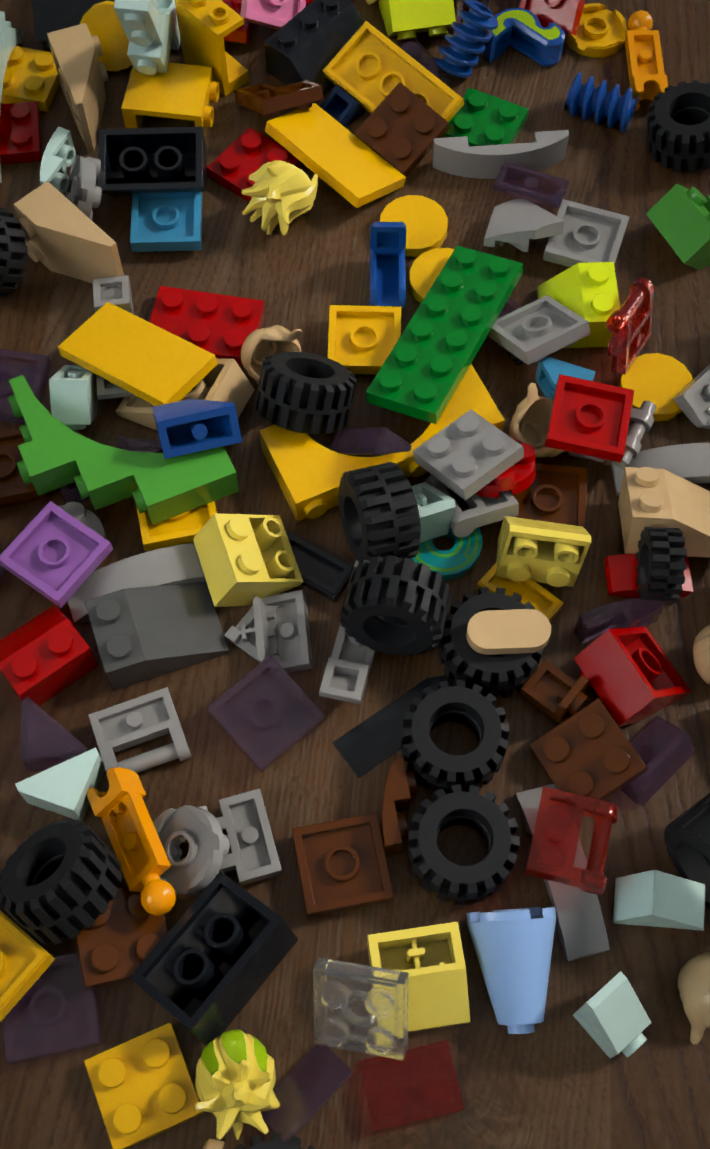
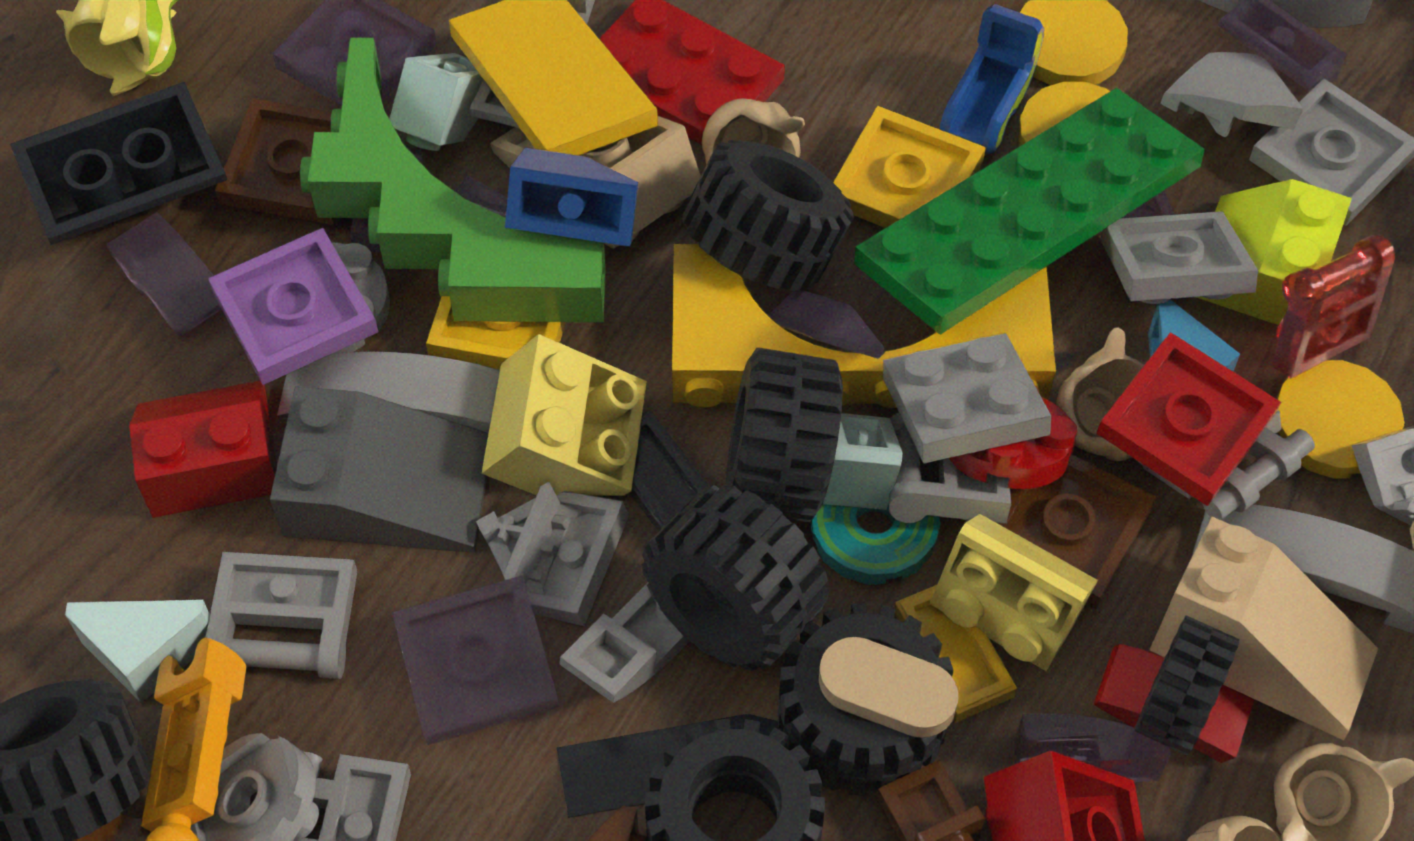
camera: 25 degrees right, 5 degrees down
(44, 739) = (141, 557): clear purple slope -> none

